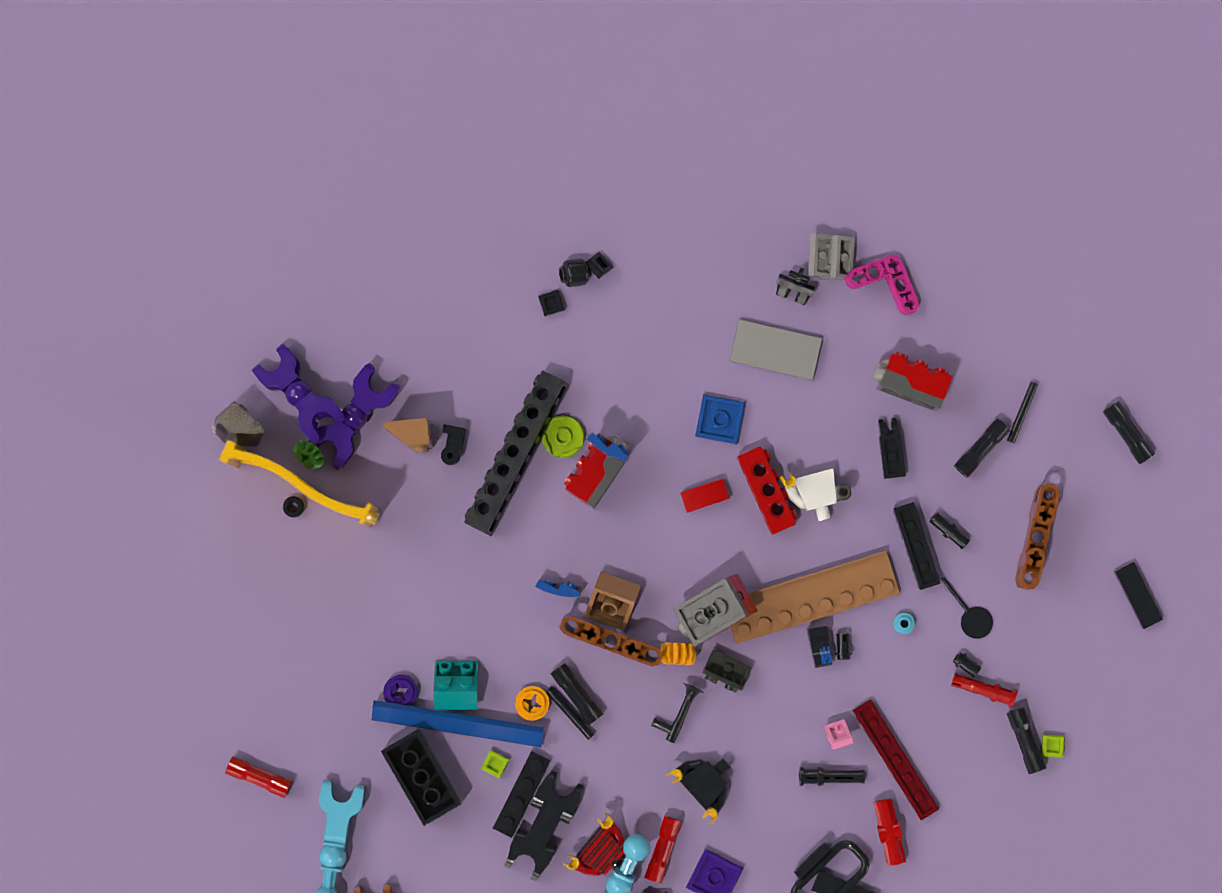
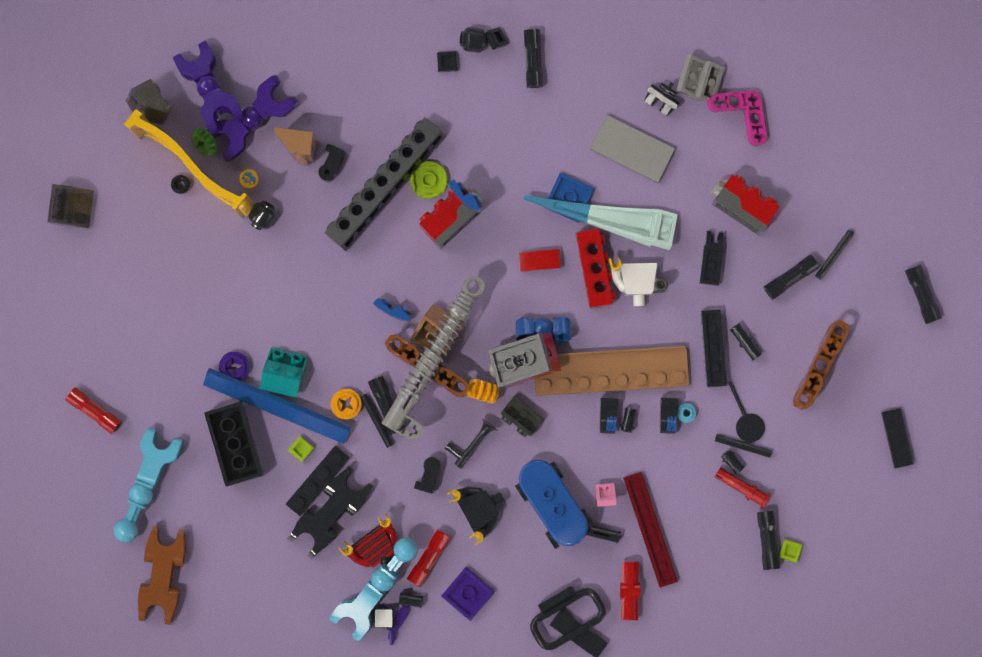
camera: 15 degrees right, 0 degrees up
(179, 560) = (70, 206): none -> clear smoke slope
(367, 483) = (249, 179): none -> yellow tile
(391, 519) = (262, 215): none -> black head
(614, 635) = (429, 361): none -> light grey piece
(642, 270) = (533, 58): none -> black axle
(642, 752) = (430, 475): none -> black leg
(744, 565) = (559, 328): none -> blue piece
(784, 757) = (557, 509): none -> blue piece
(805, 431) = (640, 225): none -> light aqua plate
(885, 630) = (668, 415): none -> black leg
(976, 644) = (742, 445): none -> black bar

